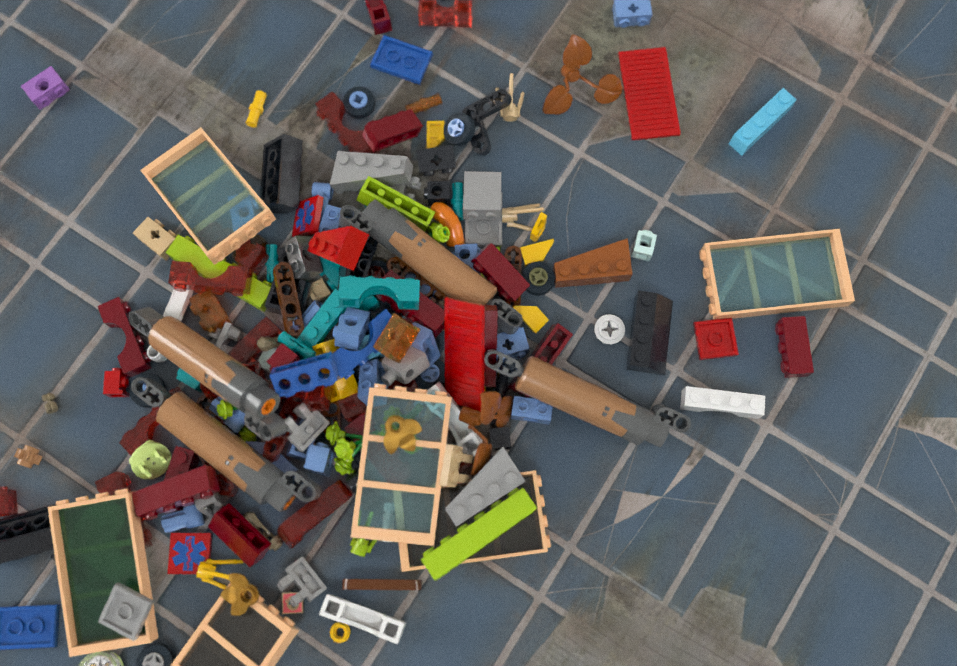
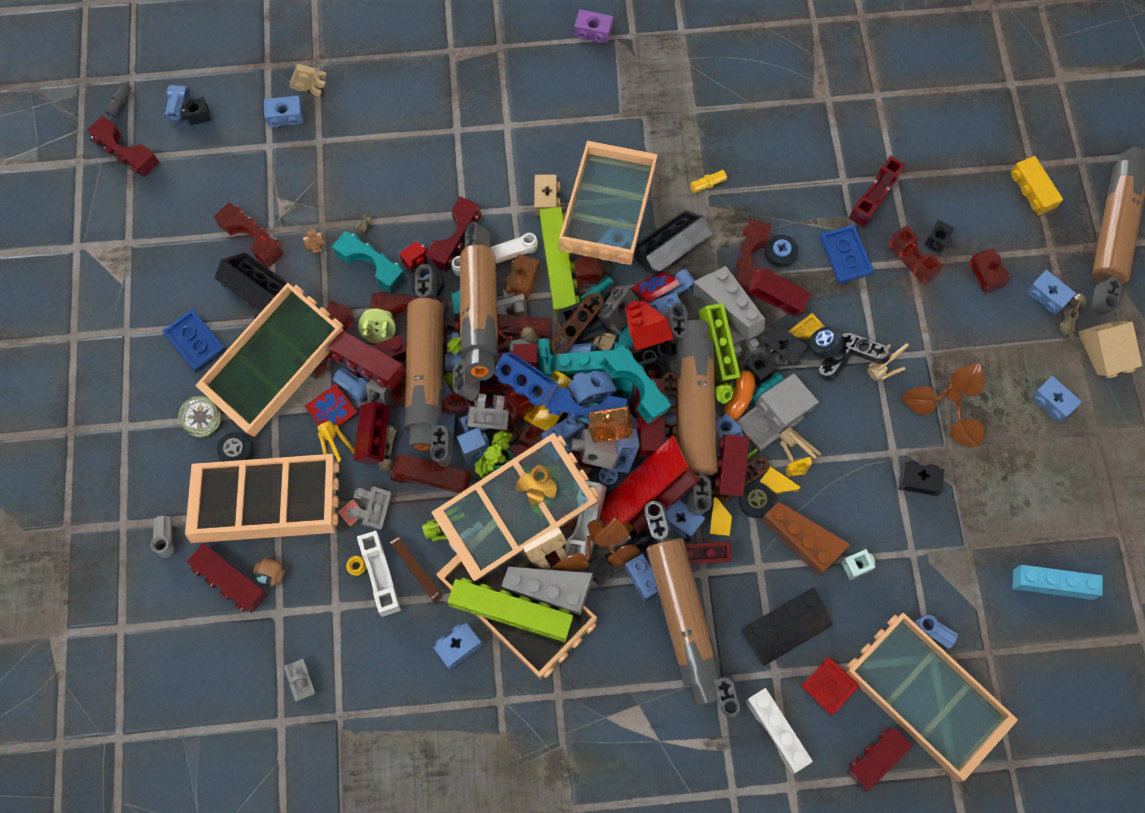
camera: 50 degrees right, 5 degrees down
(63, 430) = (351, 249): none -> teal arch
(126, 611) = (255, 397): light grey tile -> none
(234, 280) = (558, 273): clear red arch -> none
(238, 594) = (327, 465): pearl gold plate -> none
(424, 103) = (824, 300): clear orange pin -> none
(475, 610) = (468, 641): none -> medium blue brick
(615, 323) = (772, 592): white gear -> none
(616, 149) = (911, 481): none -> black brick
(649, 93) = (997, 469): red window -> none
(735, 231) = (938, 632): none -> medium blue piece

